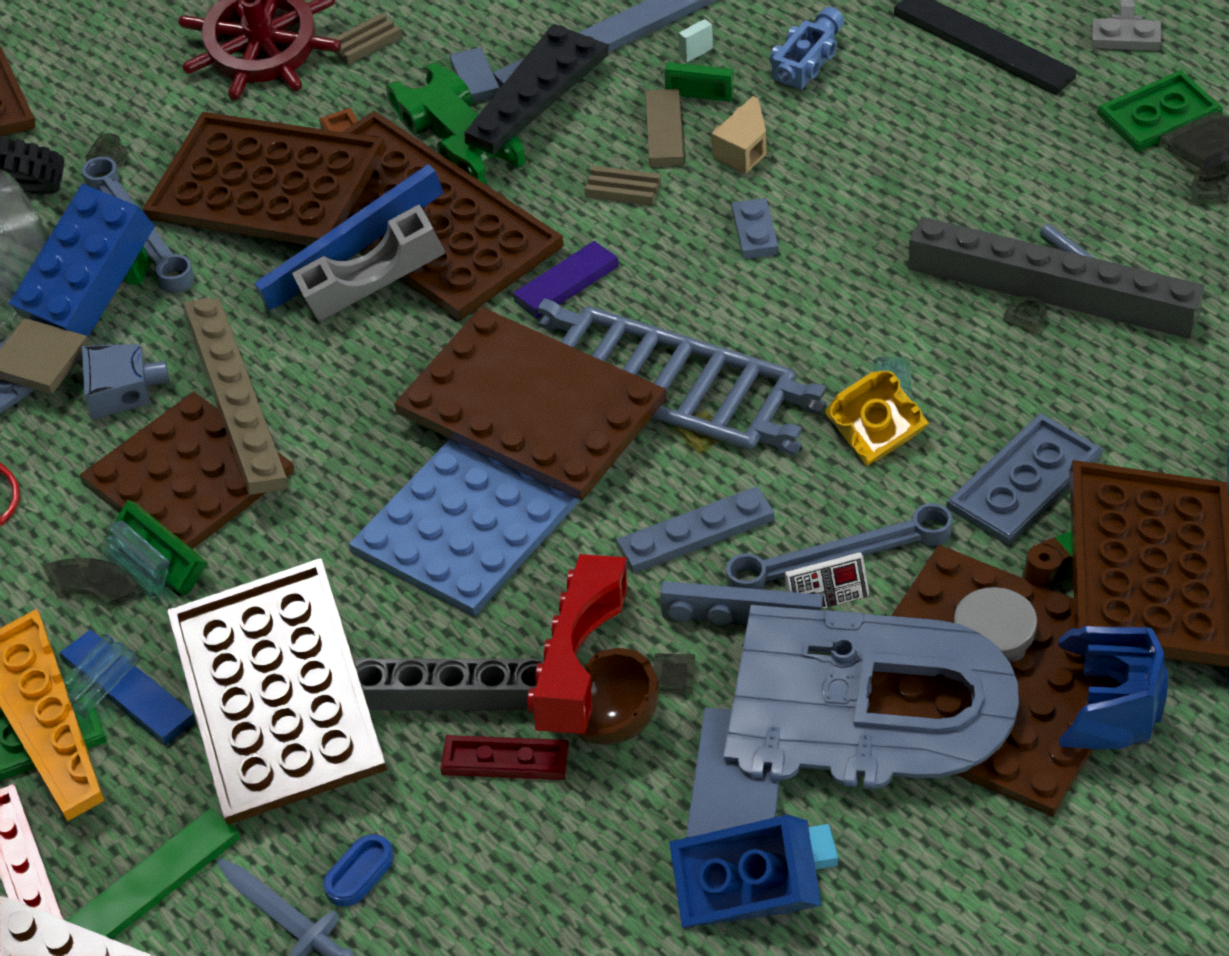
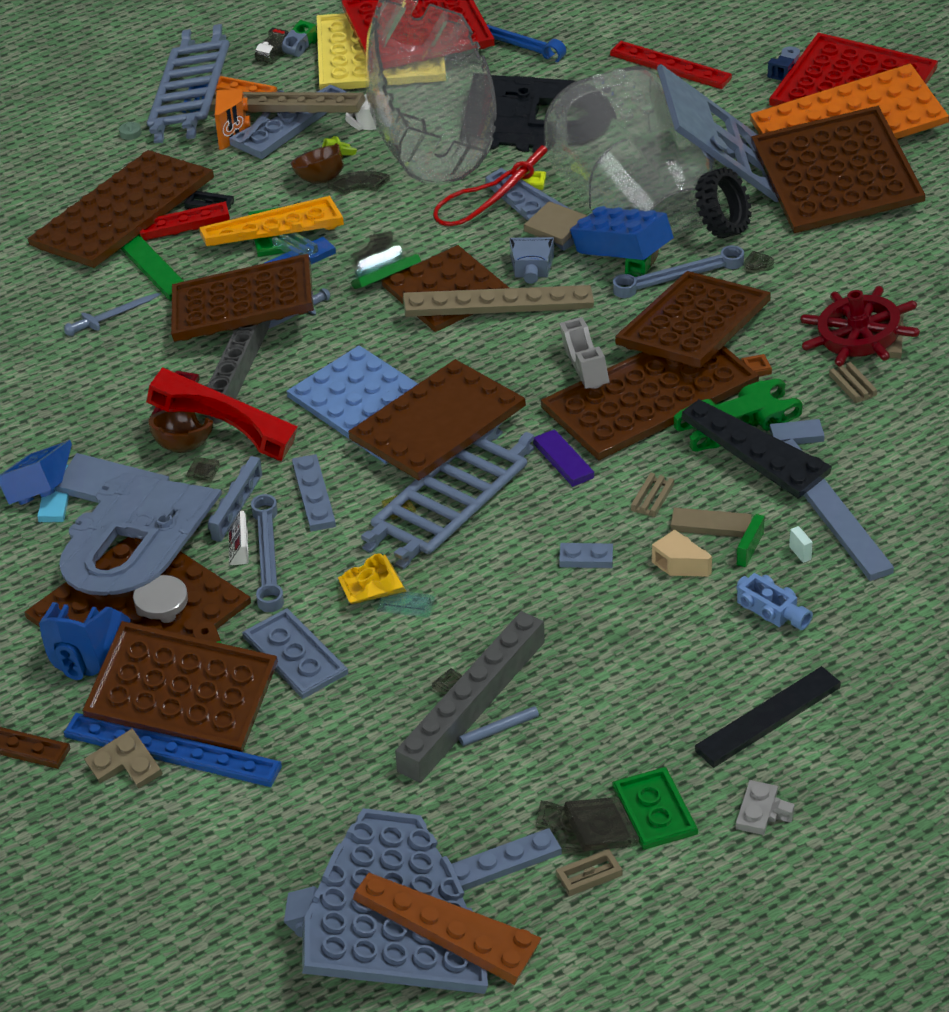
camera: 100 degrees right, 5 degrees down
(351, 235) = (618, 350): blue tile -> none
(358, 870) = (125, 339): blue tile -> none

